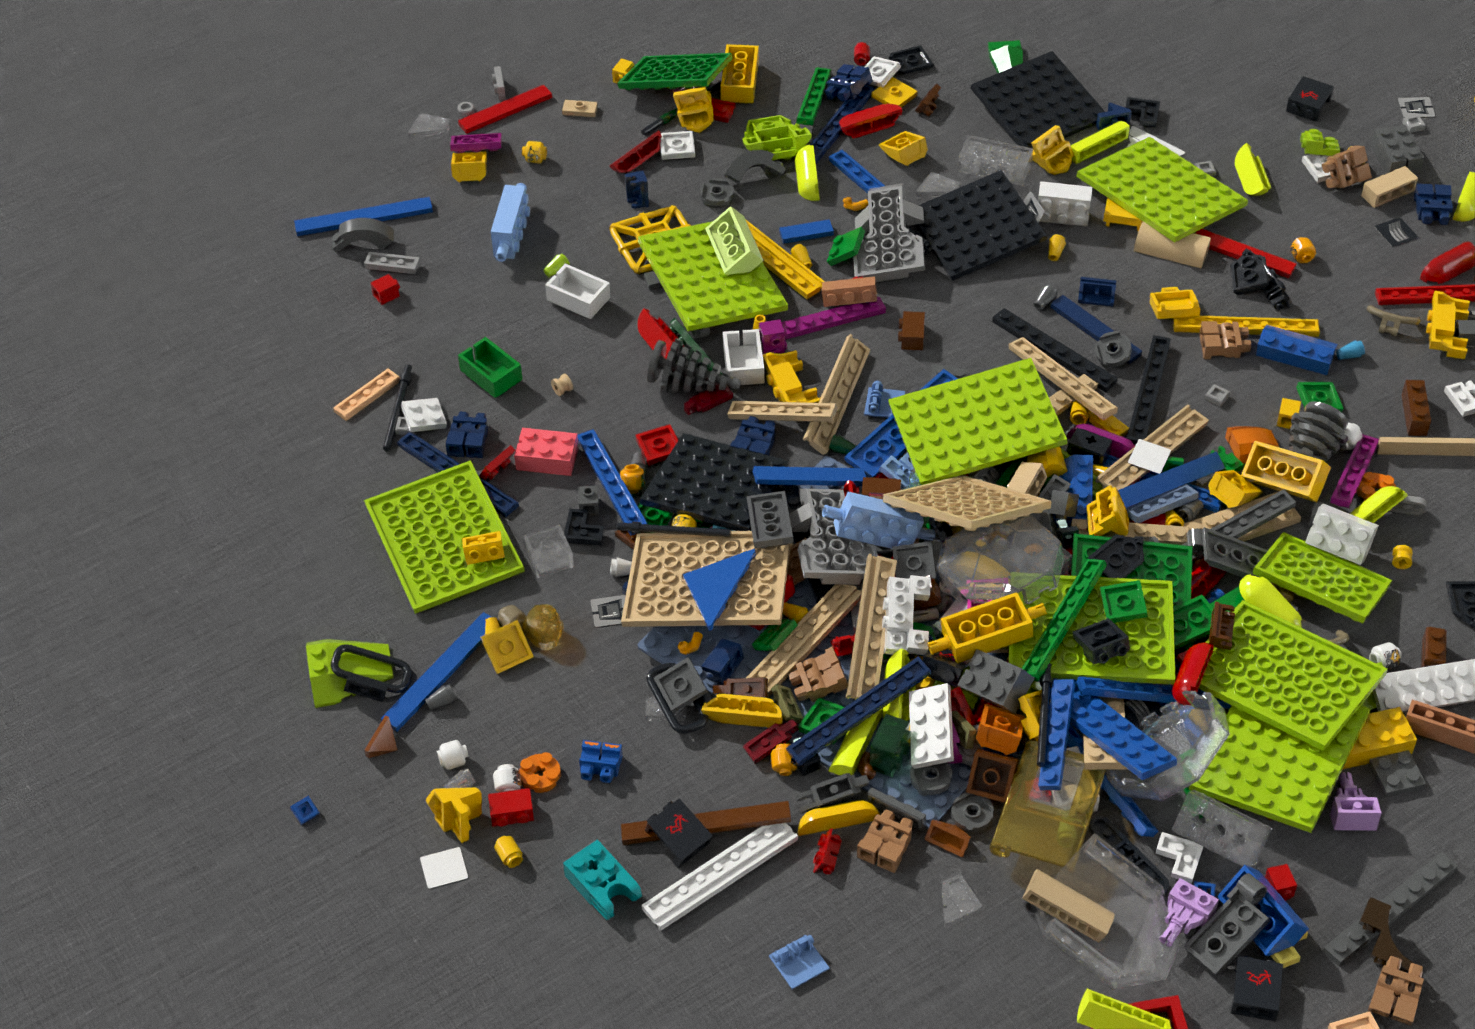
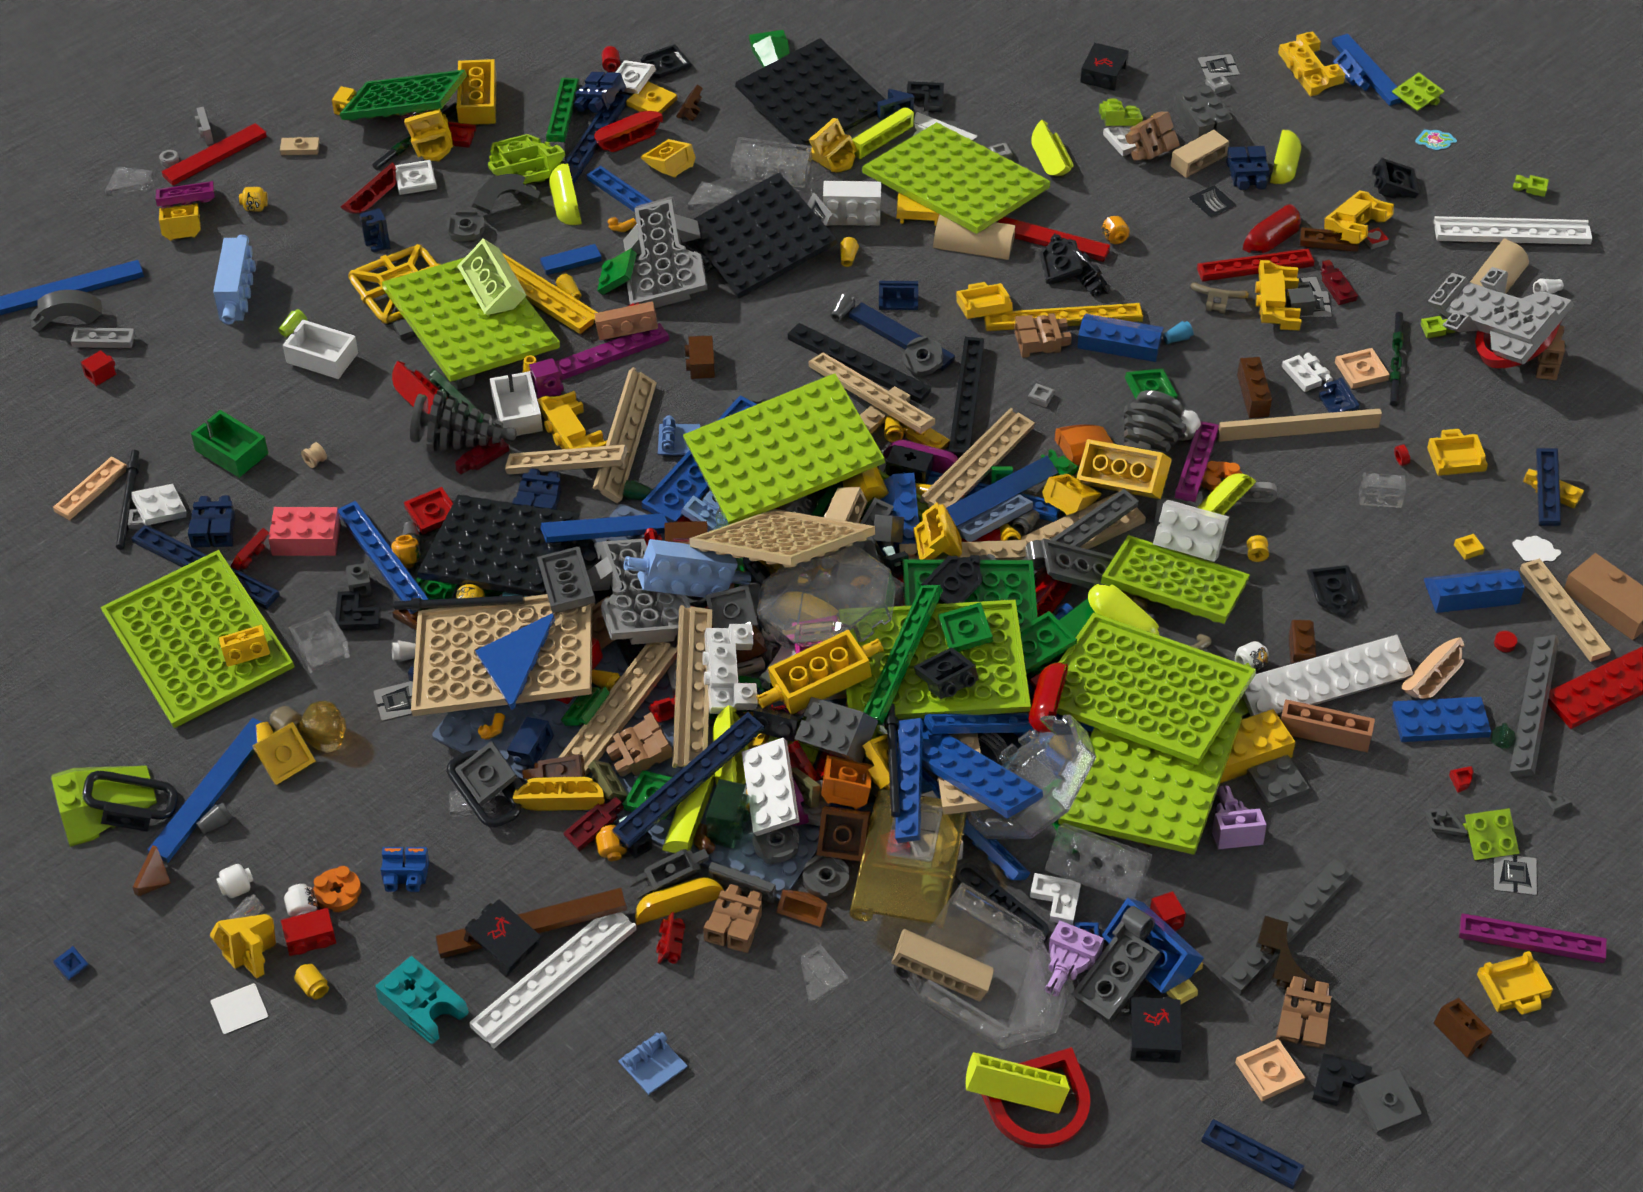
camera: 10 degrees left, 0 degrees up
(1149, 456) = (975, 468): white sticker -> none
(1222, 626) = (1074, 642): reddish brown hinge -> none
(1287, 409) = (1117, 403): yellow brick -> none

